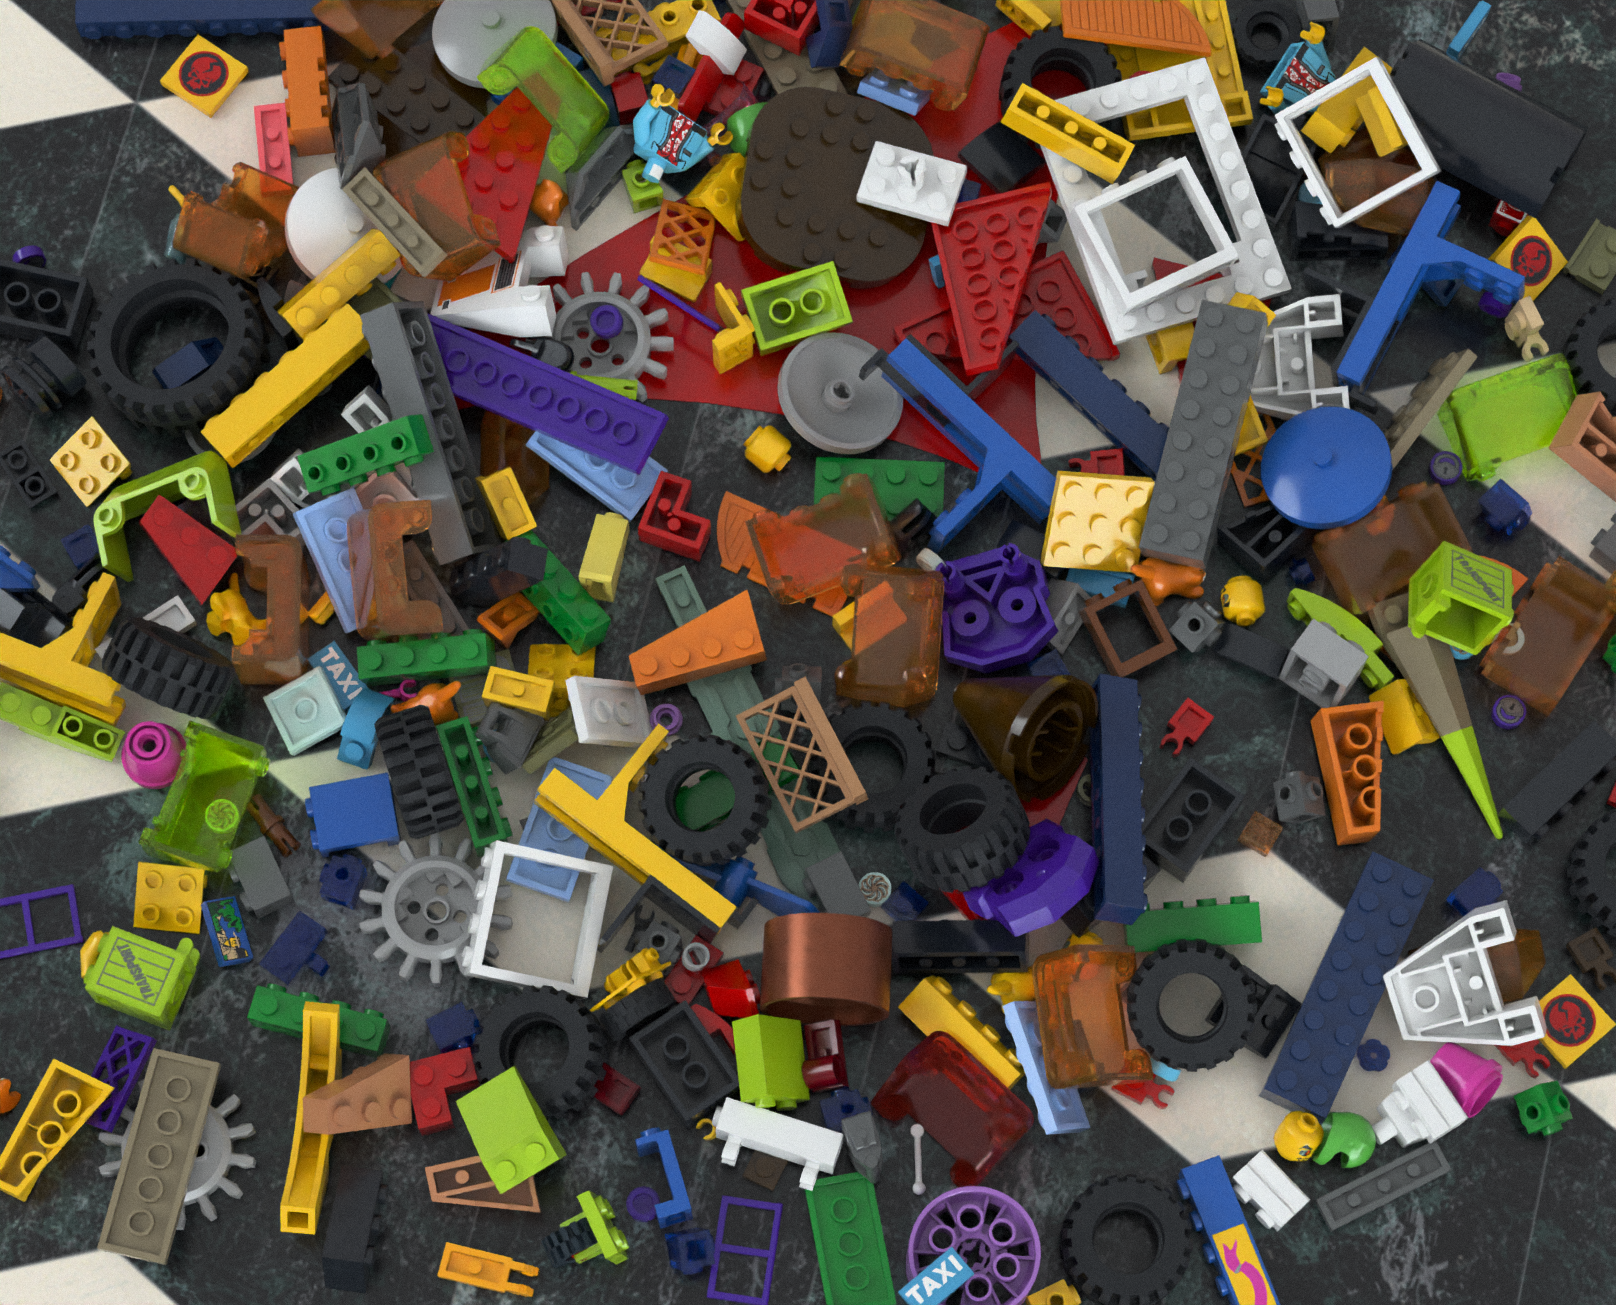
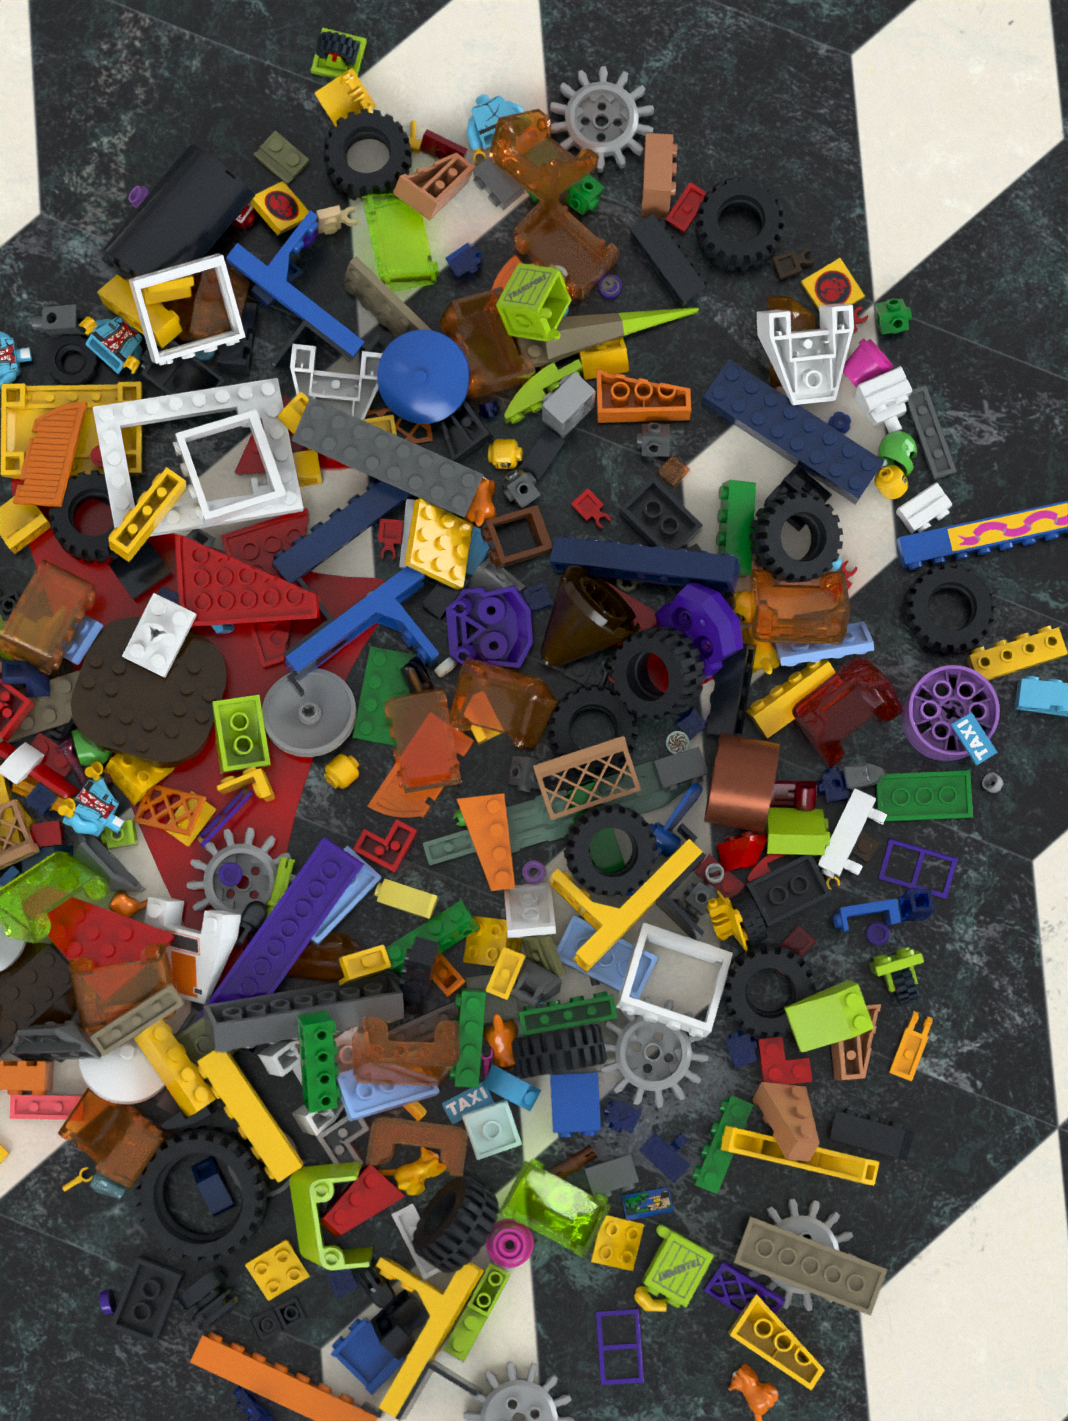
camera: 80 degrees left, 10 degrees up
(917, 1132) = (850, 739): white hinge -> none
(1445, 468) = (425, 295): tile -> none
(1469, 29) = (93, 216): dark azure tile -> none
(1476, 891) = (740, 332): clear blue brick -> none

